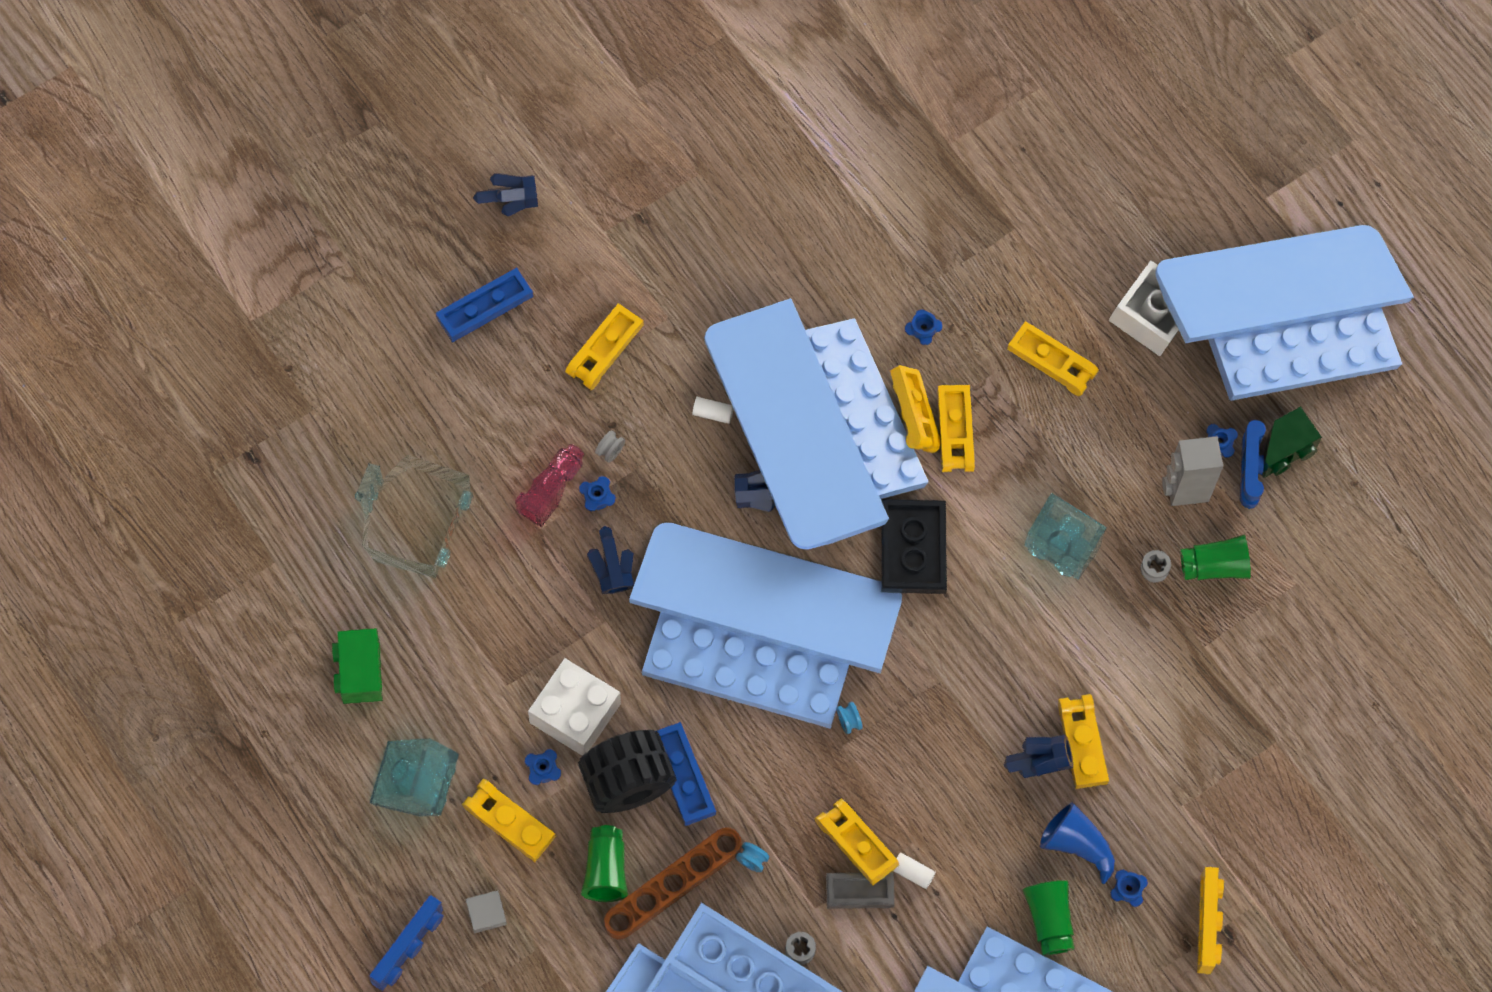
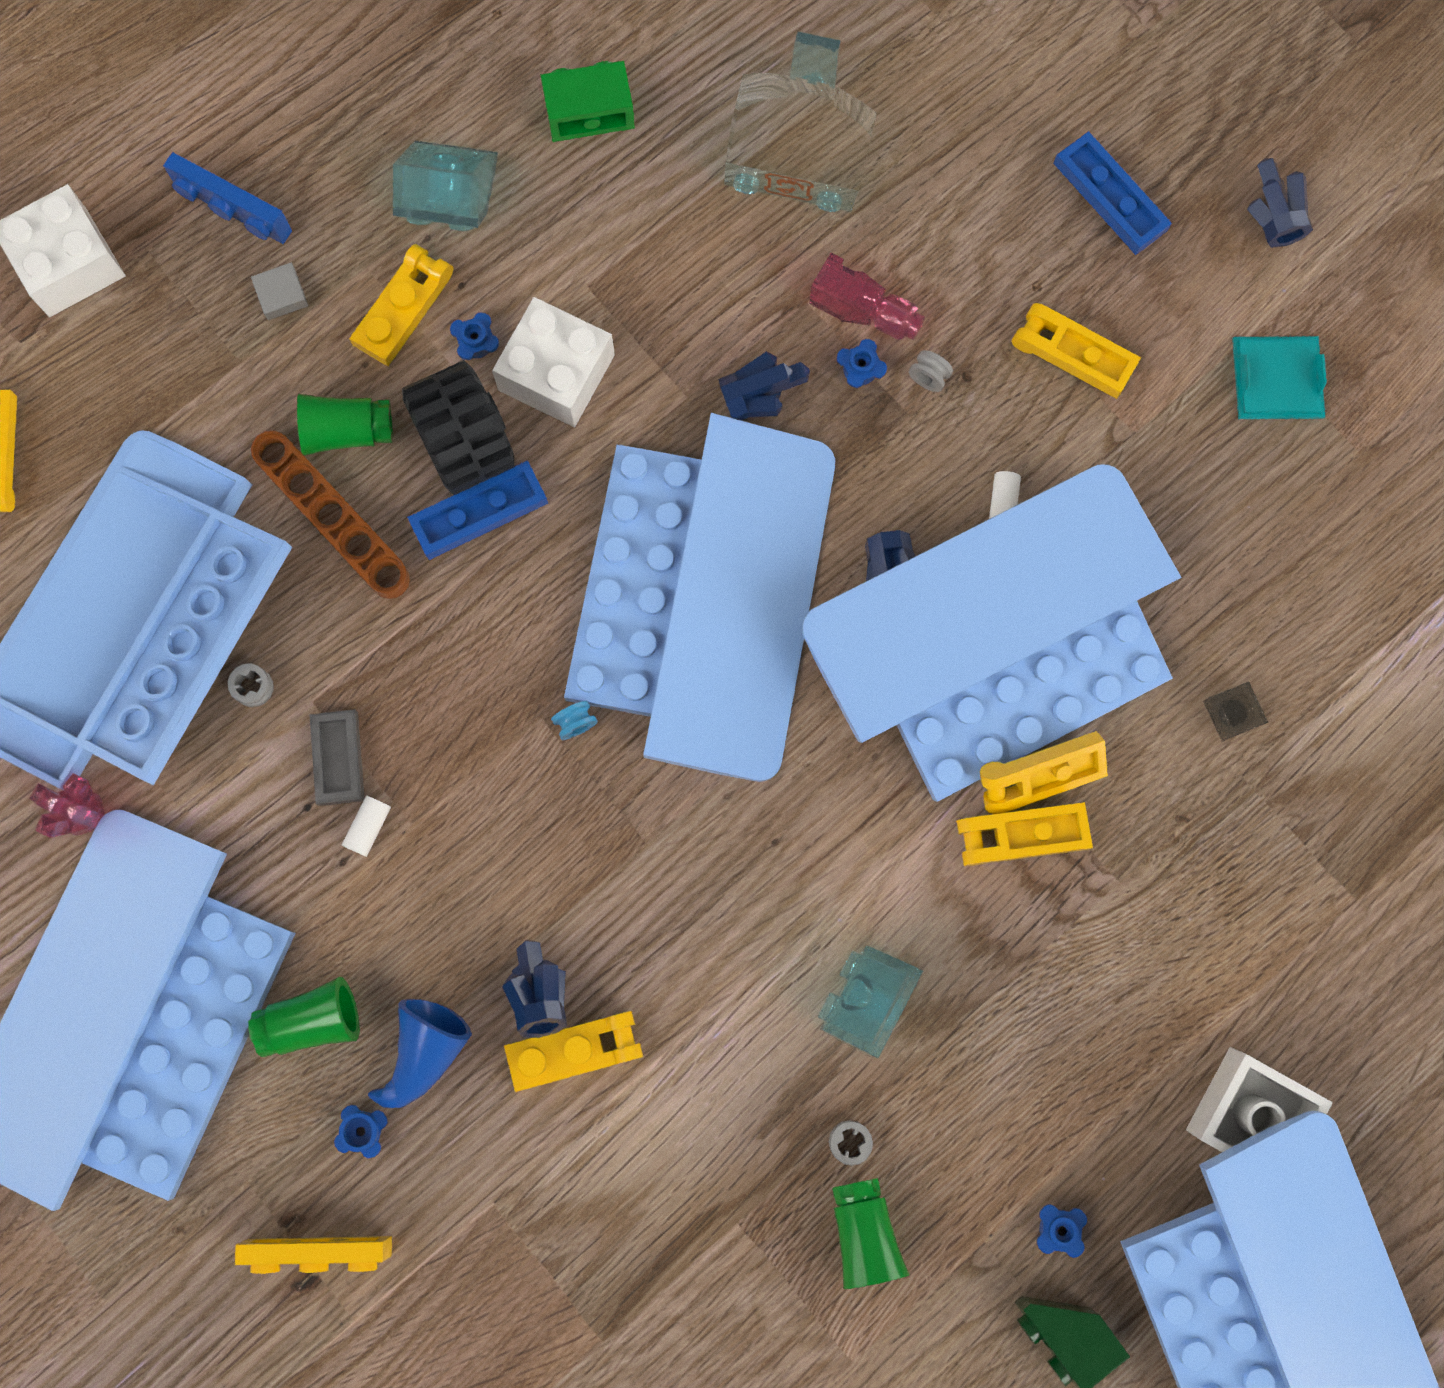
camera: 85 degrees right, 10 degrees up
(637, 216) = (1279, 377): none -> teal piece
(752, 857) = (368, 610): dark azure bush -> none
(857, 842) = (395, 744): yellow plate -> none
(881, 281) = (1235, 711): none -> clear smoke plate
(914, 547) = (839, 789): black tile -> none
(925, 318) = (1188, 774): blue plate -> none
(1052, 358) = (1156, 966): yellow plate -> none
(1193, 471) = (993, 1190): light grey brick -> none
(1251, 464) = (1028, 1282): blue plate -> none

